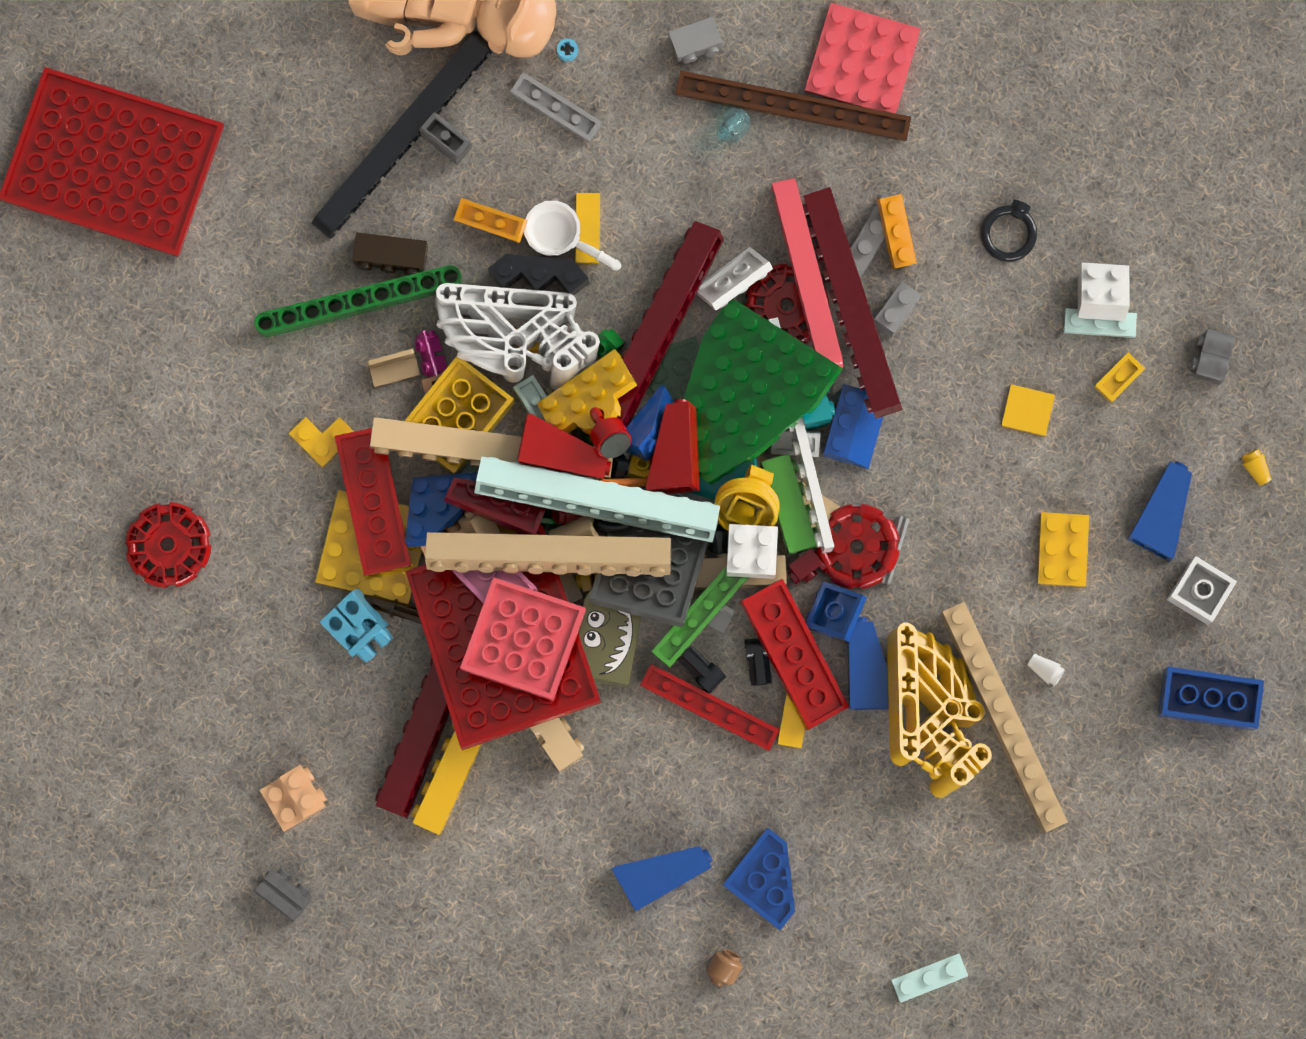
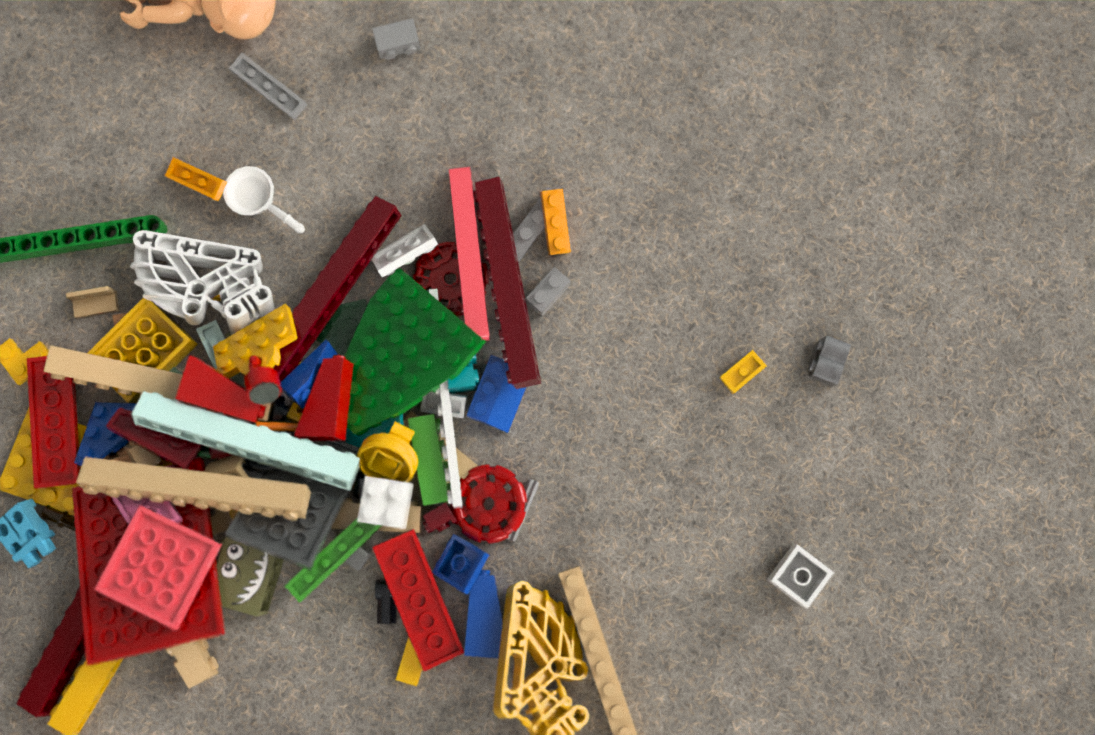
camera: 10 degrees right, 0 degrees up
(389, 253) = (103, 200): dark brown brick -> none
(401, 135) = (127, 99): black beam -> none
(427, 345) = (127, 286): dark pink hinge -> none
(445, 138) = (165, 103): flat silver brick -> none
(538, 272) = (231, 229): black brick -> none
(561, 54) = (280, 32): medium azure bush -> none
(589, 216) = (284, 191): yellow tile -> none
(609, 341) = (287, 295): green plate -> none
(705, 673) = (336, 606): black piece -> none
(709, 707) = (337, 640): red plate -> none
(733, 125) = (421, 115): clear light blue head -> none
(793, 105) = (476, 103): reddish brown plate -> none
(862, 59) = (542, 70): coral plate -> none
(1020, 211) = (667, 214): black piece -> none
(1028, 410) = (657, 393): yellow piece -> none
(1046, 669) = (650, 634): white cone -> none
(1063, 549) = (676, 524): yellow plate -> none
(1099, 327) = (730, 321): light aqua plate -> none
(1103, 291) = (735, 293): white brick -> none
(1163, 514) = (770, 501): blue slope -> none
(1210, 698) = (799, 679): blue brick -> none
(1256, 466) = (860, 465): yellow cone -> none

